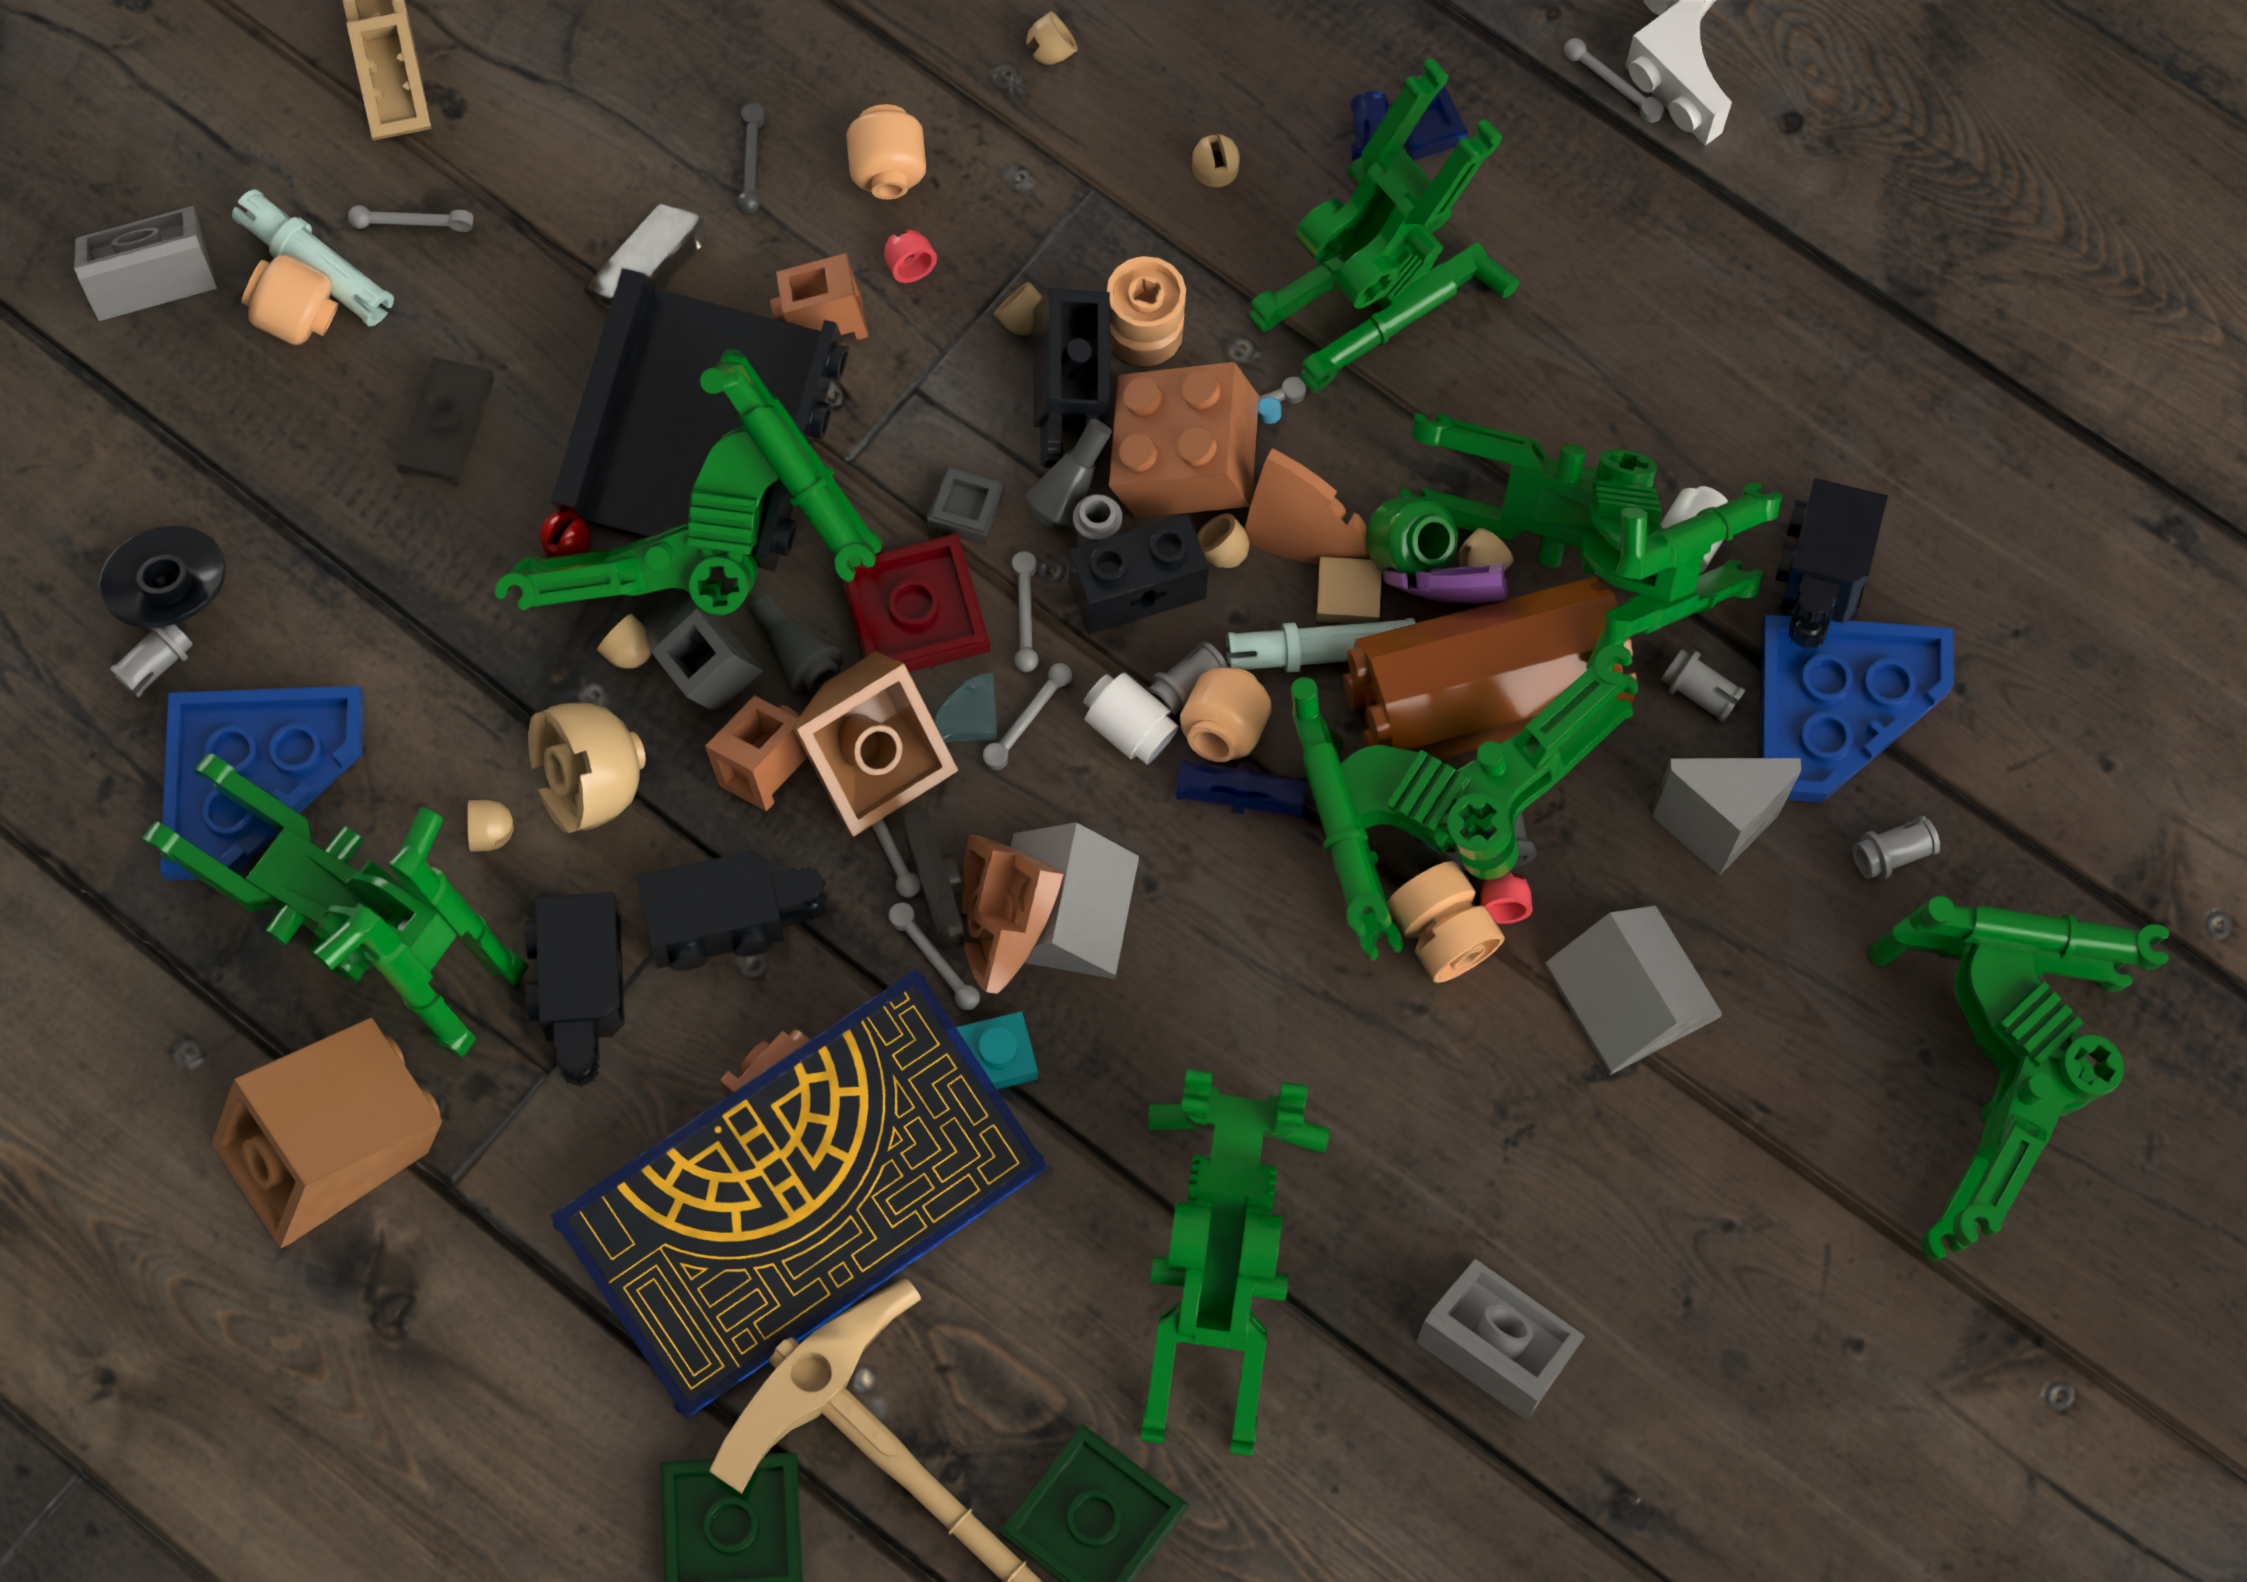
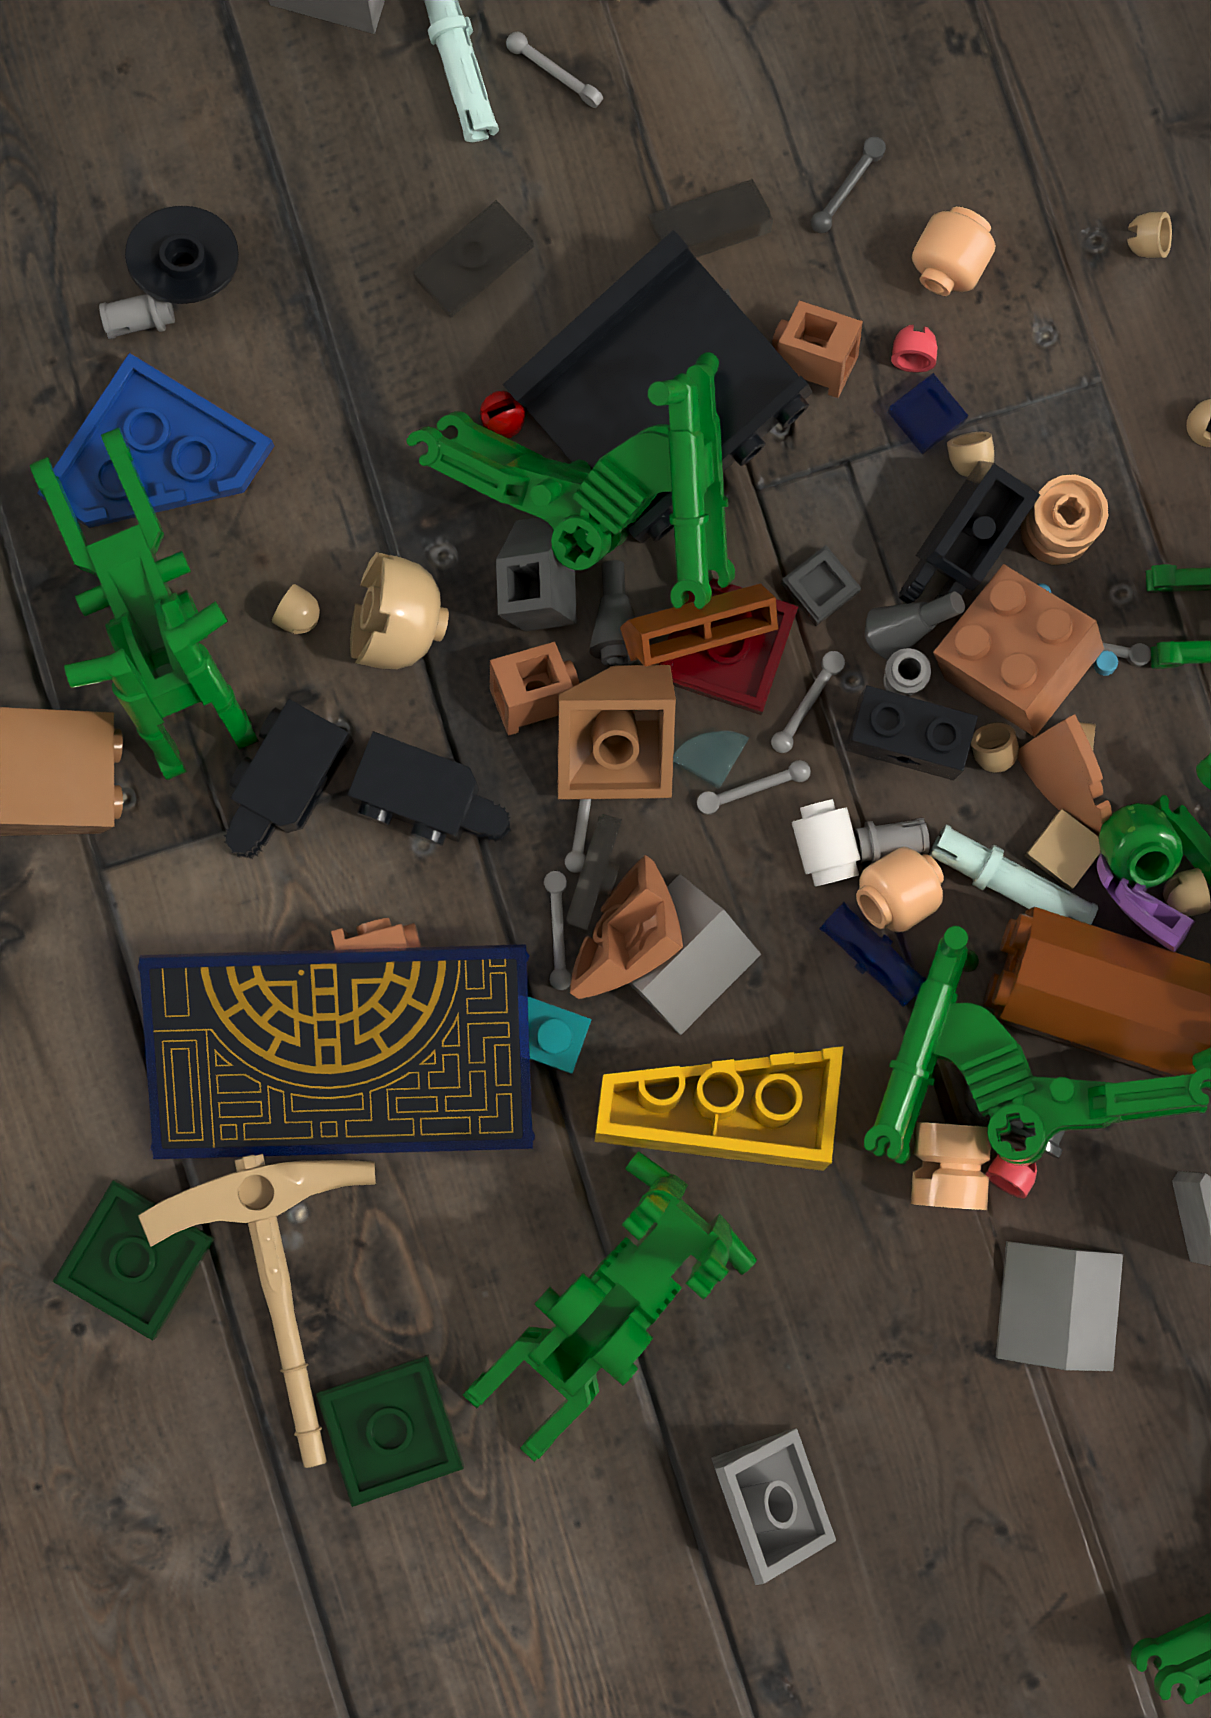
camera: 35 degrees right, 15 degrees up
(289, 299) = (416, 82): light nougat head -> none
(626, 644) = (490, 534): tan hinge -> none
(920, 542) = (754, 598): none -> dark orange piece
(958, 303) = (927, 413): none -> clear blue tile
(1205, 1004) = (742, 1110): none -> yellow wedge

